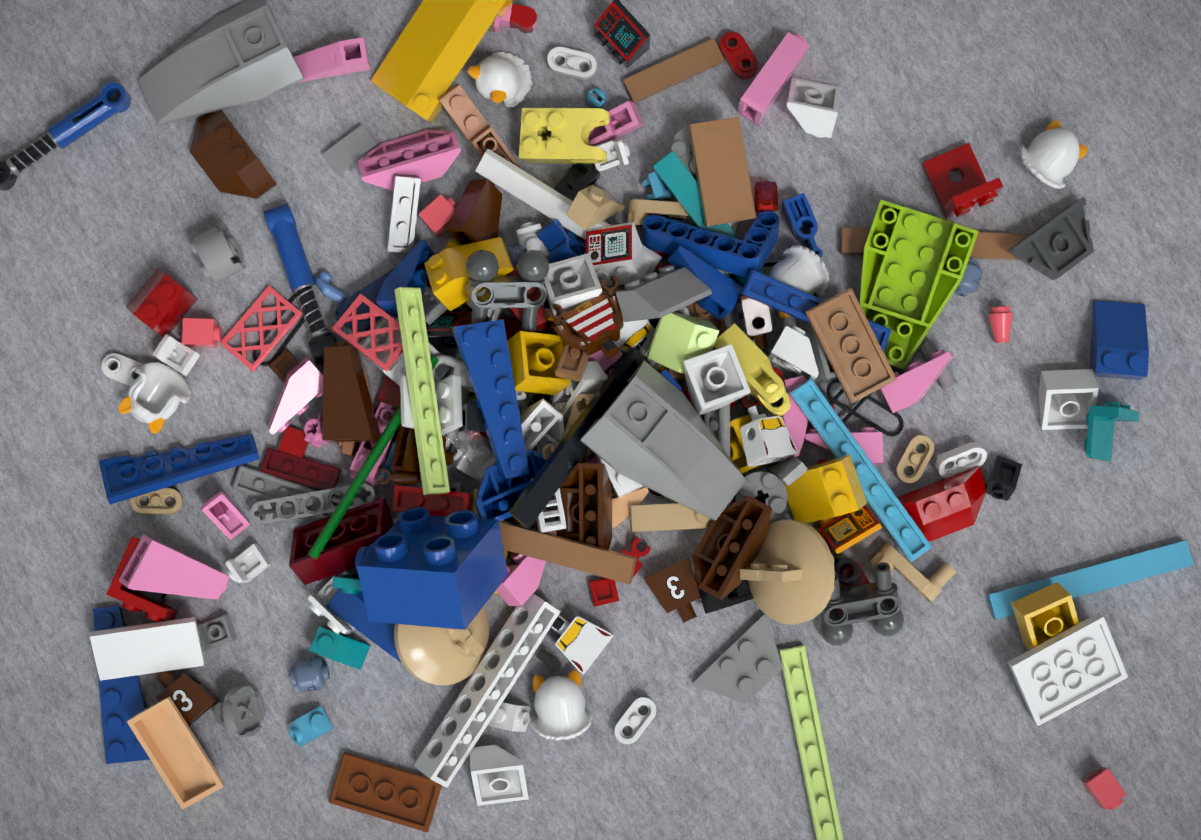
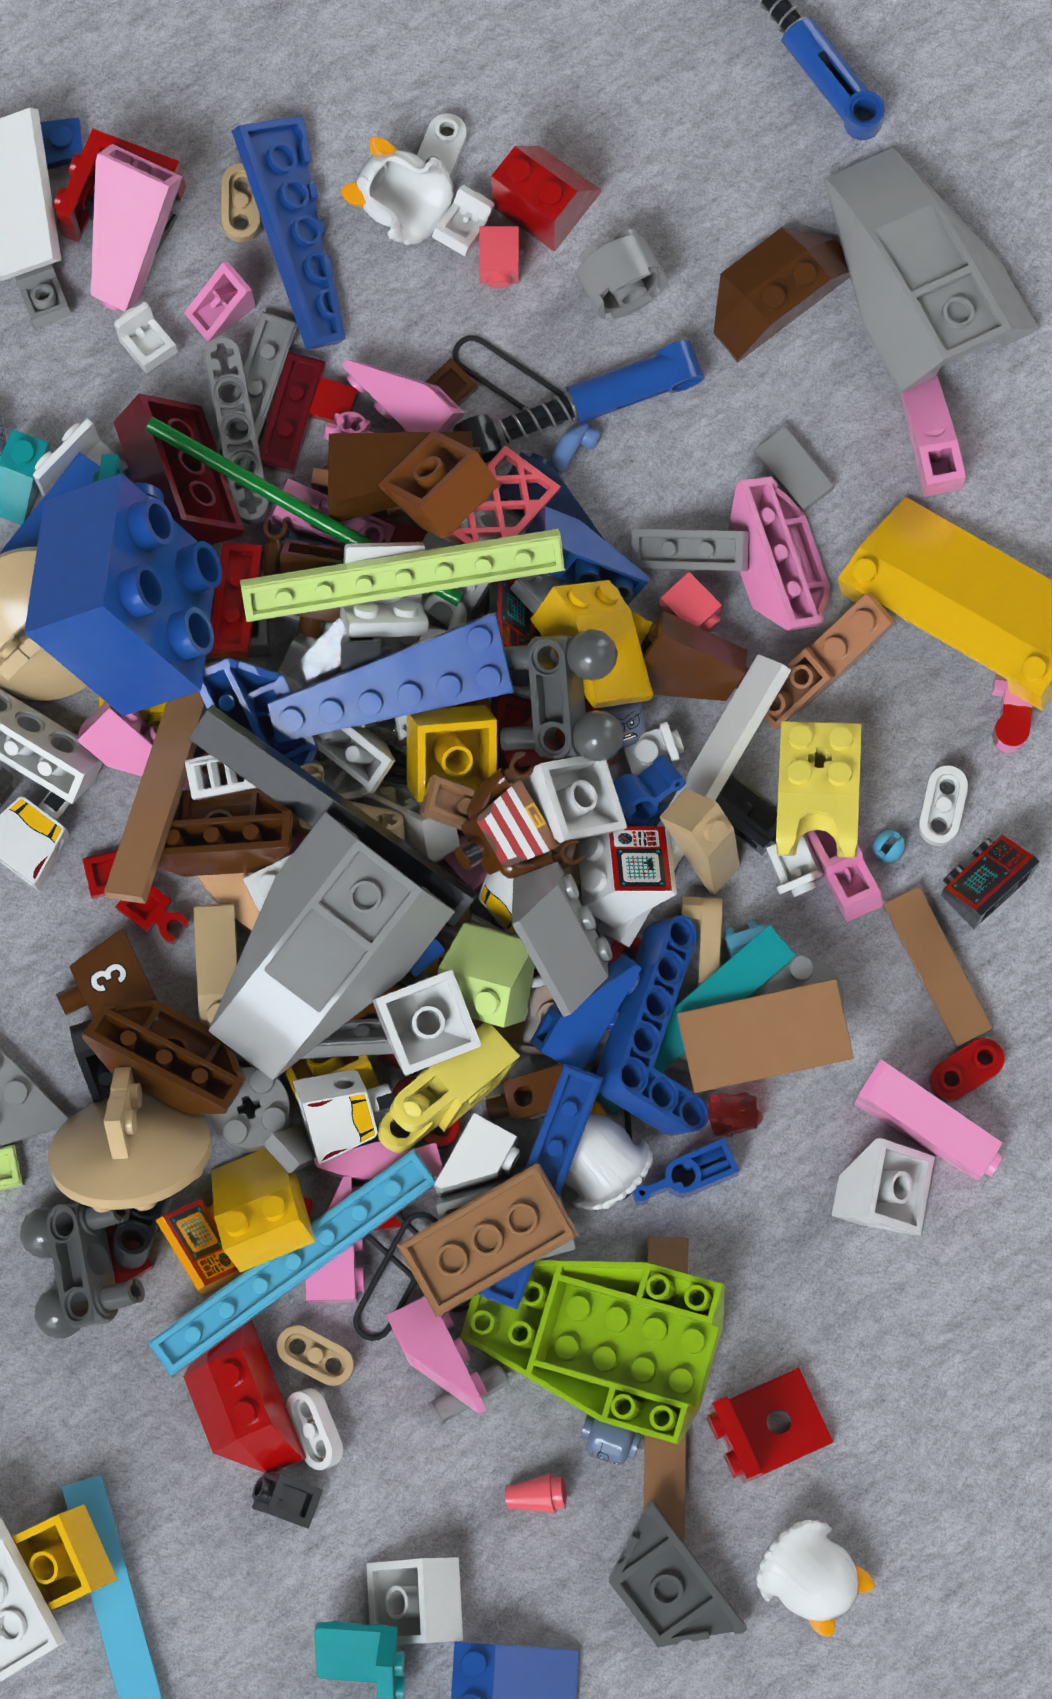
camera: 90 degrees right, 5 degrees down
(265, 349) = (510, 315): coral window -> none
(361, 365) = (440, 484): none -> dark orange slope
(502, 78) = (912, 695): white hair -> none
(927, 587) = (109, 1380): tan beam -> none

